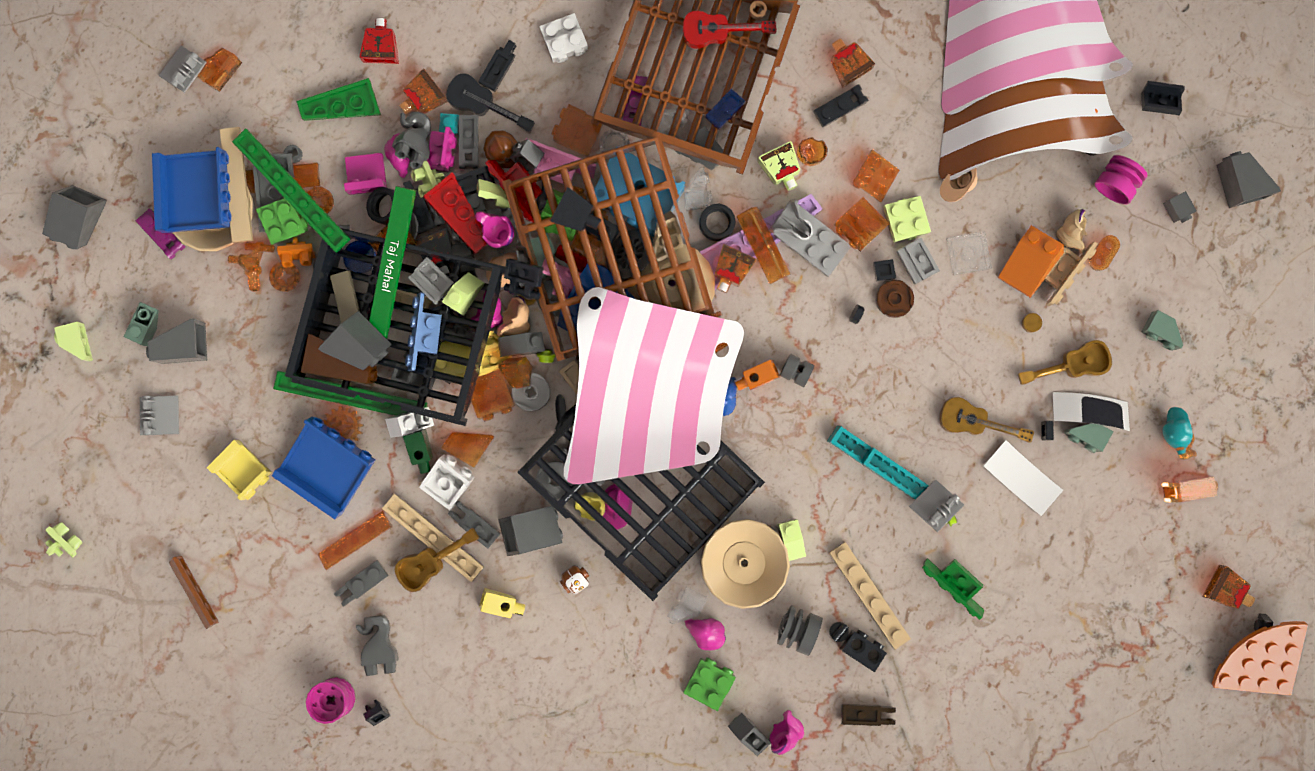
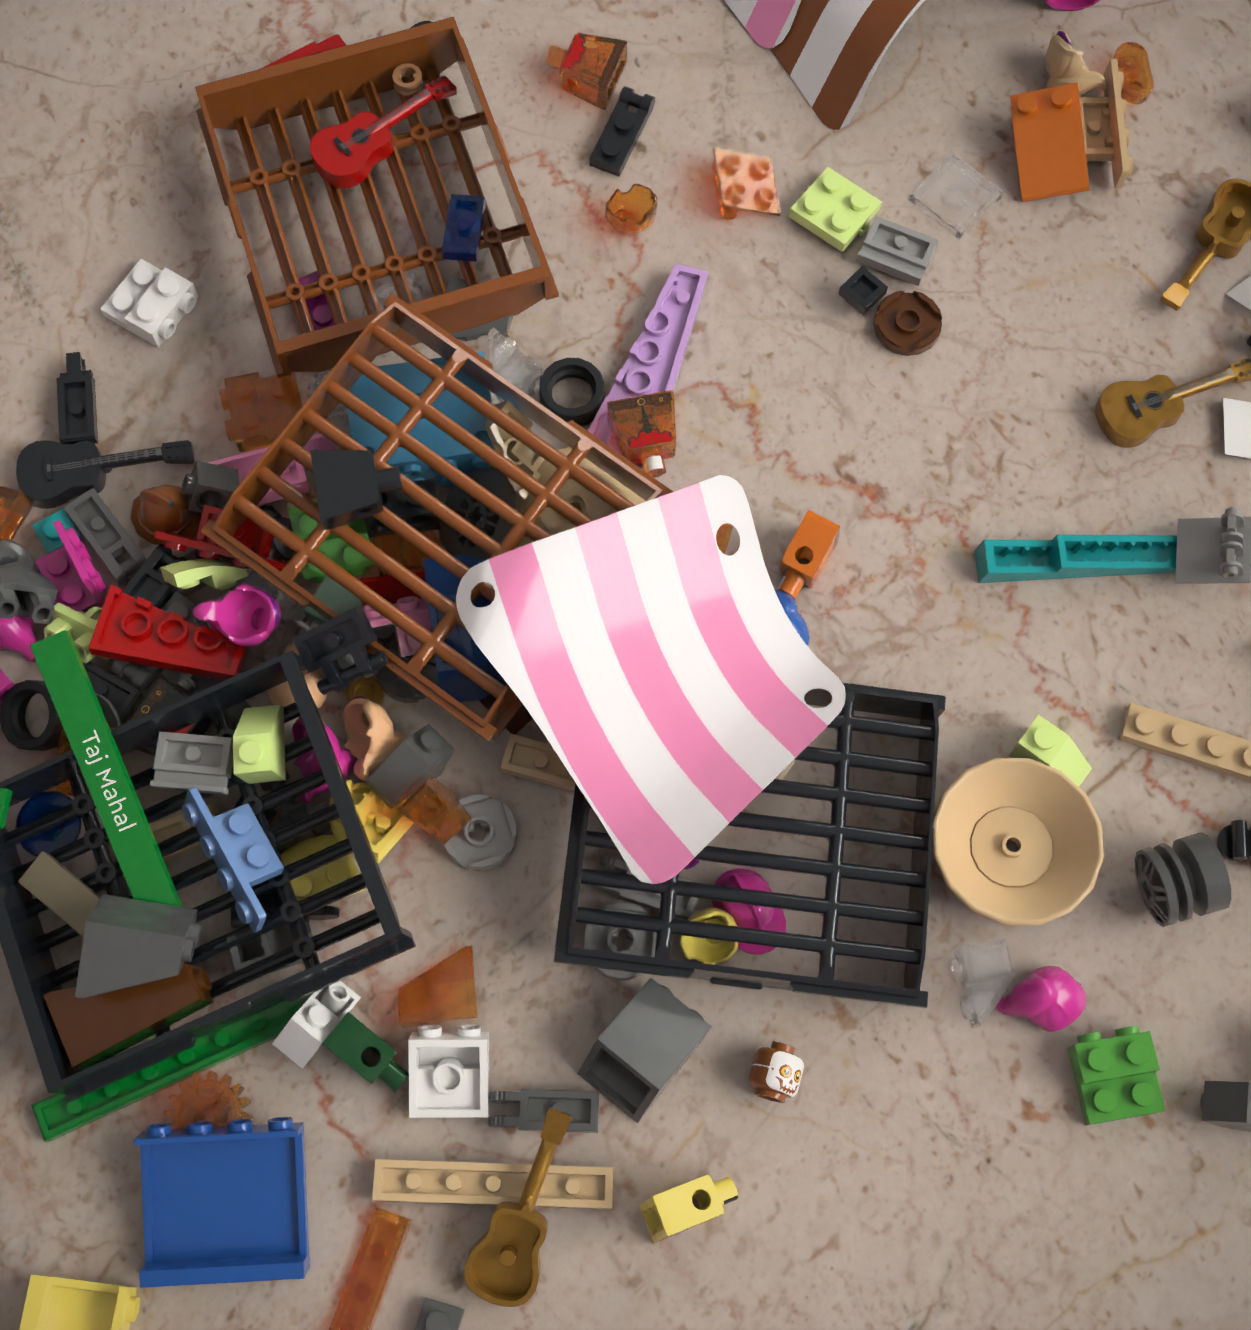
camera: 35 degrees left, 15 degrees down
(491, 396) = (422, 881): clear orange plate -> none
(546, 356) = (462, 760): lime plate -> none
(561, 413) = (554, 834): black piece -> none
(763, 245) = (664, 374): clear orange slope -> none
(781, 165) = (602, 256): yellowish green torso -> none
(790, 368) = (858, 509): dark grey wheel -> none
(809, 238) = (721, 320): light grey plate -> none
(857, 314) = (874, 376): black tile -> none
(861, 224) = (779, 256): clear orange plate -> none
(955, 189) = (872, 116): light nougat piece -> none
(1032, 322) = (1118, 224): pearl gold tile -> none

